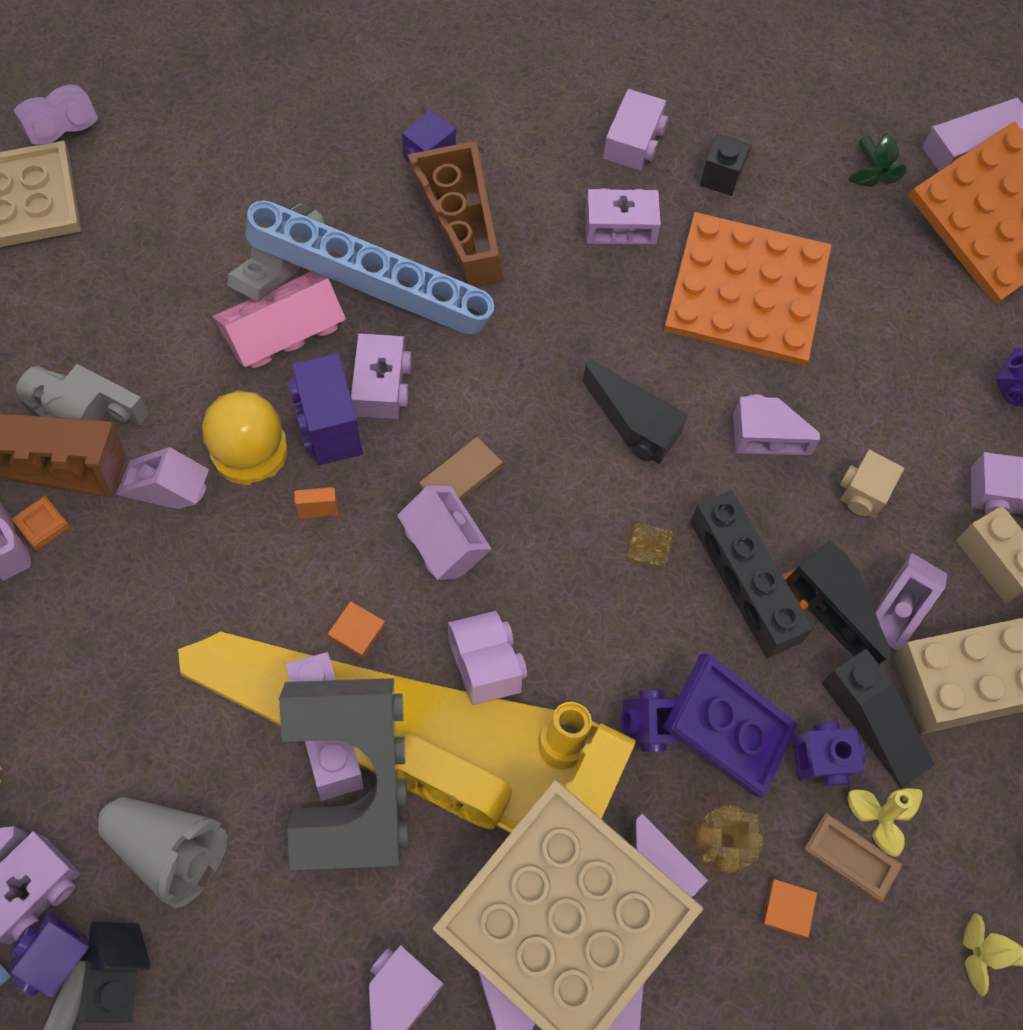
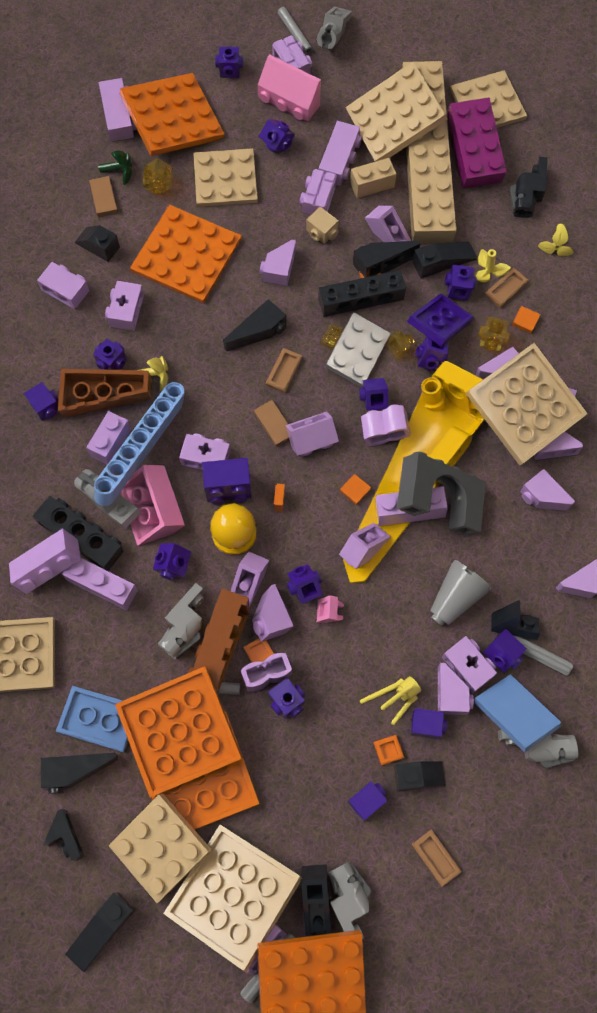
camera: 75 degrees left, 5 degrees up
(93, 523) = (271, 616): none -> lavender slope
(123, 615) = (327, 609): none -> bright pink tile
(135, 271) = (101, 583): none -> lavender brick
(153, 186) = (44, 561): none -> lavender brick
(156, 567) = (304, 583): none -> dark purple brick
(179, 360) = (171, 560): none -> dark purple brick
(213, 231) = (54, 509): none -> black brick
(241, 657) = (363, 545): none -> lavender slope
(384, 229) = (108, 437): none -> lavender brick
(517, 274) = (159, 368): none -> light yellow plant
(523, 211) = (110, 355): none -> dark purple brick
(544, 627) = (374, 394): none -> dark purple brick
(566, 474) = (284, 370): none -> medium nougat tile
(634, 587) = (357, 349): none -> light grey plate
(664, 662) = (399, 344): none -> clear yellow tile
(815, 154) = (103, 196): none -> medium nougat tile
(873, 214) = (157, 176): none -> clear yellow brick
(916, 319) = (225, 177): none -> tan plate
(939, 468) = (319, 191): none -> lavender brick

